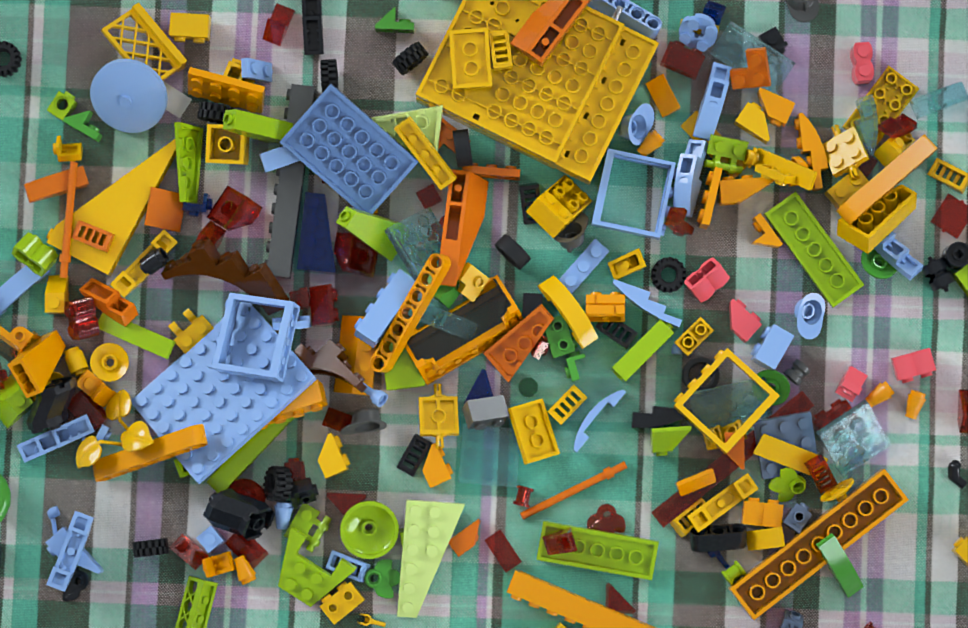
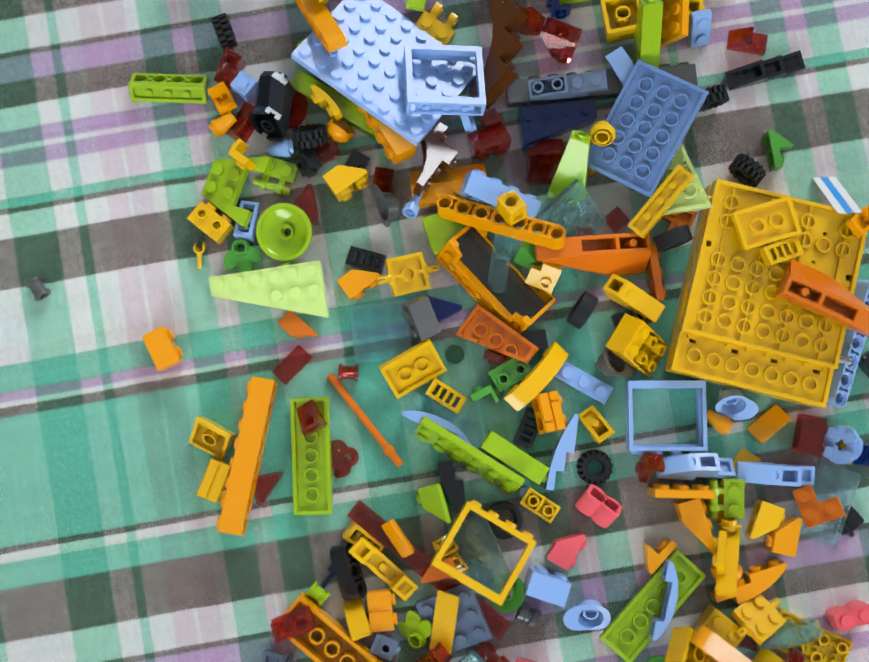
camera: 75 degrees right, 0 degrees up
(244, 462) = (323, 99): none -> yellow slope
(277, 452) = (339, 130): none -> light orange hair
(278, 560) = (236, 152): none -> yellow bracket
(287, 215) = (568, 86): none -> sand blue slope
(312, 442) = (357, 160): none -> black plate
(345, 194) = (602, 133): none -> yellow cone
(408, 299) = (511, 207): none -> yellow brick
(512, 200) = (633, 298): none -> yellow slope
(631, 395) = (469, 456): none -> lime plate
(755, 599) = (292, 624): none -> clear red hinge
(831, 249) = (659, 625): none -> light blue slope

